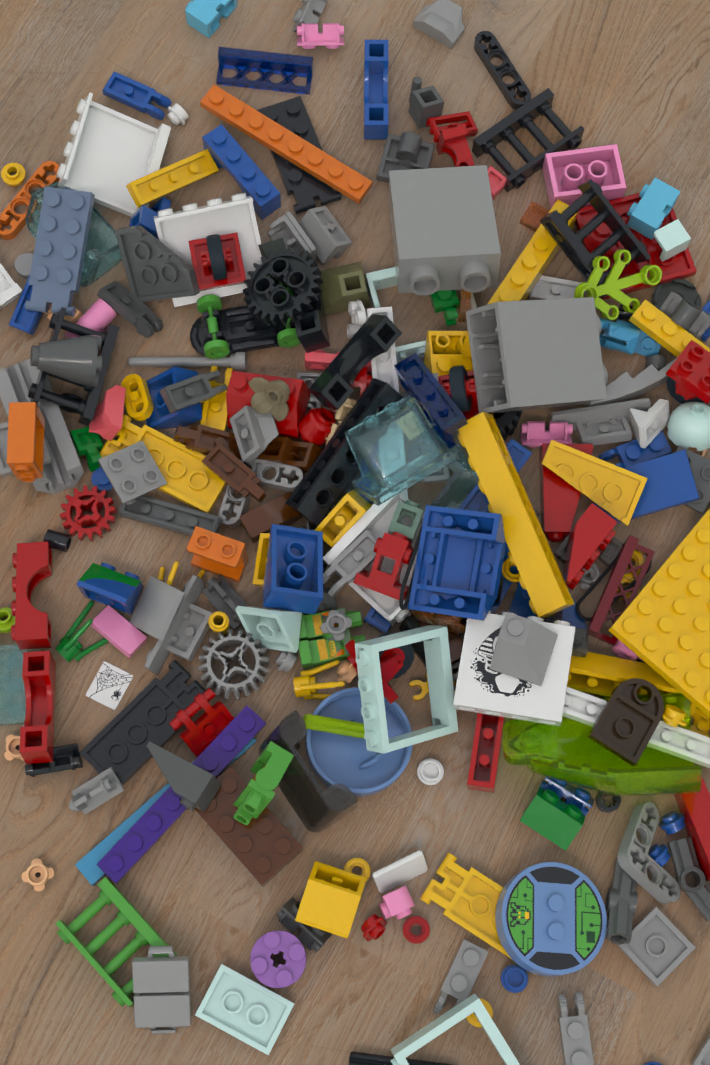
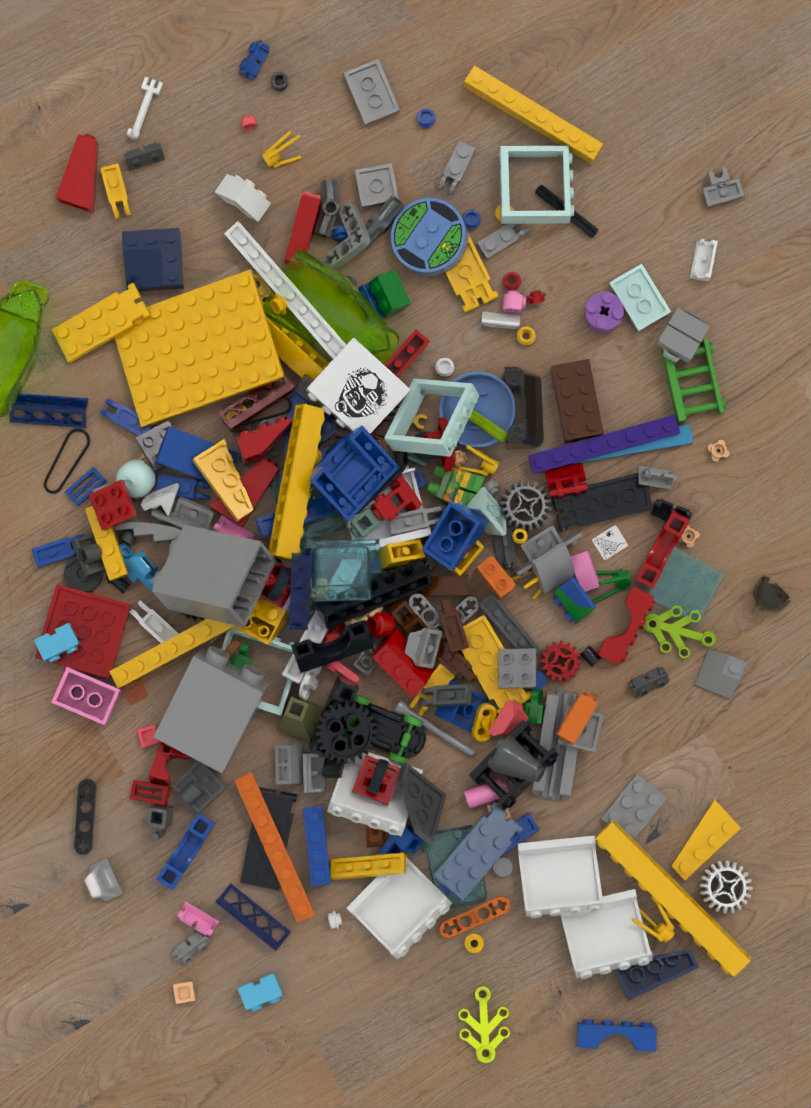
camera: 150 degrees left, 10 degrees up
(131, 309) = (451, 788): dark grey hinge -> none
(135, 95) = (355, 955): blue hinge -> none
(188, 781) = (598, 444): dark grey slope -> none
(259, 791) = (553, 412): bright green hips -> none
(270, 397) = (401, 657): dark tan plate -> none
(310, 936) = (573, 316): dark grey hinge -> none
(330, 899) = (552, 326): yellow slope -> none
(335, 617) = (443, 486): light grey plate -> none
(523, 118) = (96, 766): black fence -> none
(523, 649) = (348, 392): light grey slope -> none
(572, 243) = (133, 644): black fence -> none
(613, 285) = (147, 602): lime plant -> none
(627, 721) = (310, 315): dark brown tile -> none
(672, 239) = (61, 612): light aqua panel -> none
(672, 822) = (318, 247): blue plate -> none

